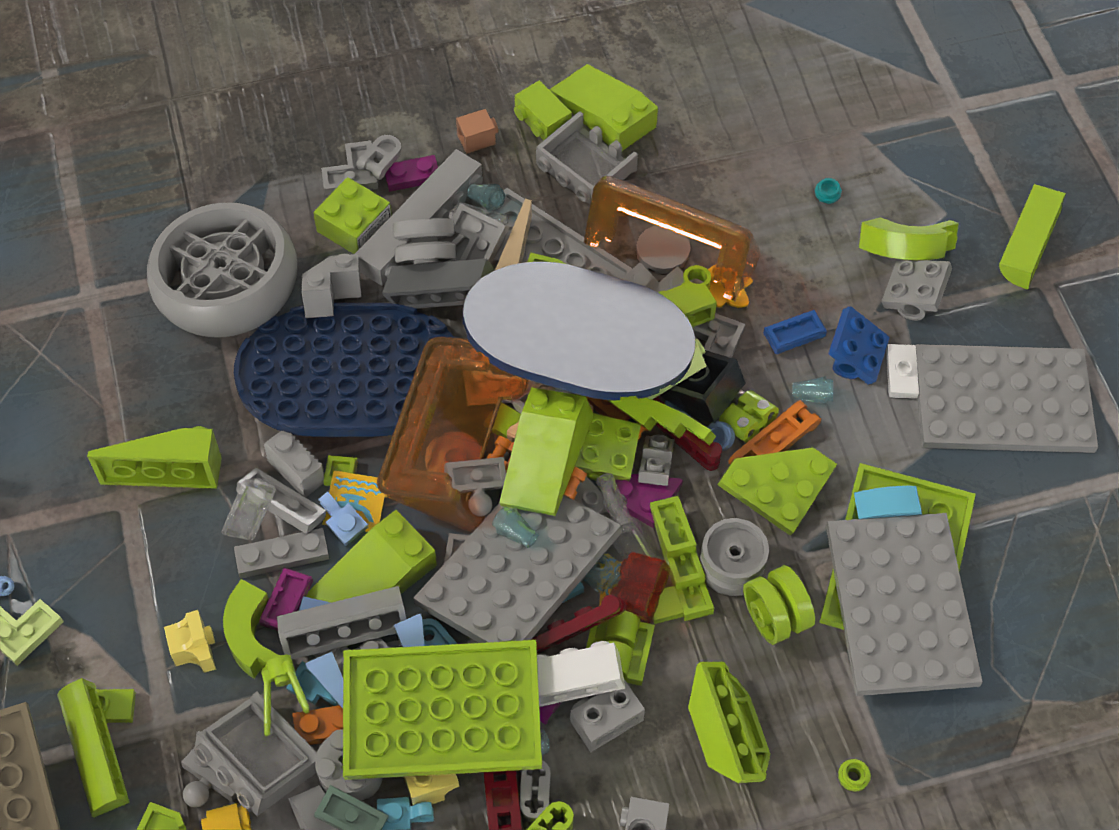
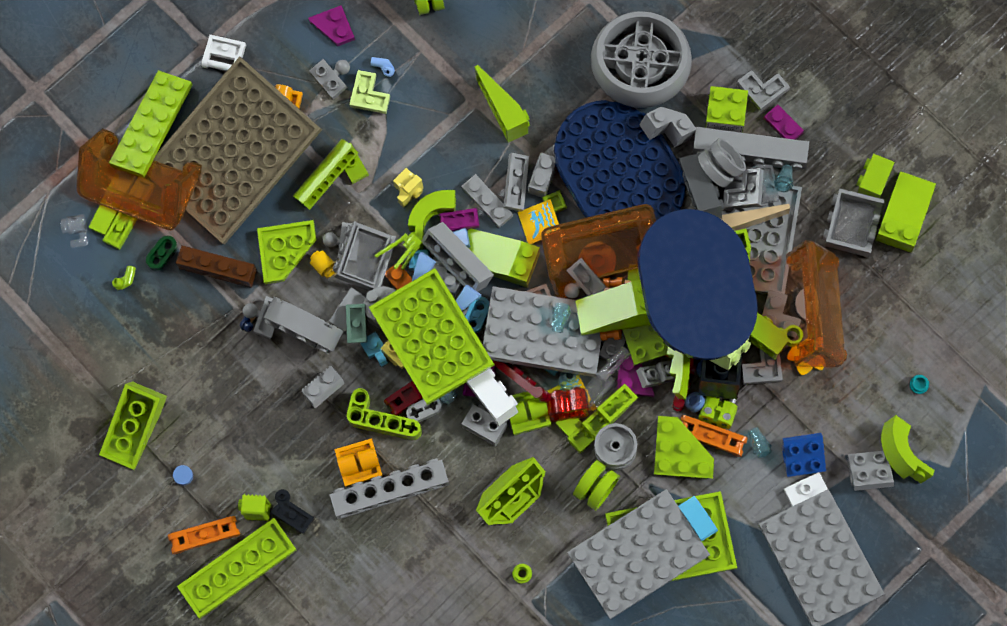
camera: 70 degrees right, 15 degrees up
(249, 509) = (498, 168): clear slope -> none
(344, 521) = (523, 223): light blue plate -> none
(384, 148) = (784, 101): light grey plate -> none
(476, 131) = (836, 145): nougat brick -> none
(795, 332) = (796, 412): blue plate -> none
(1031, 235) = (956, 527): lime brick -> none

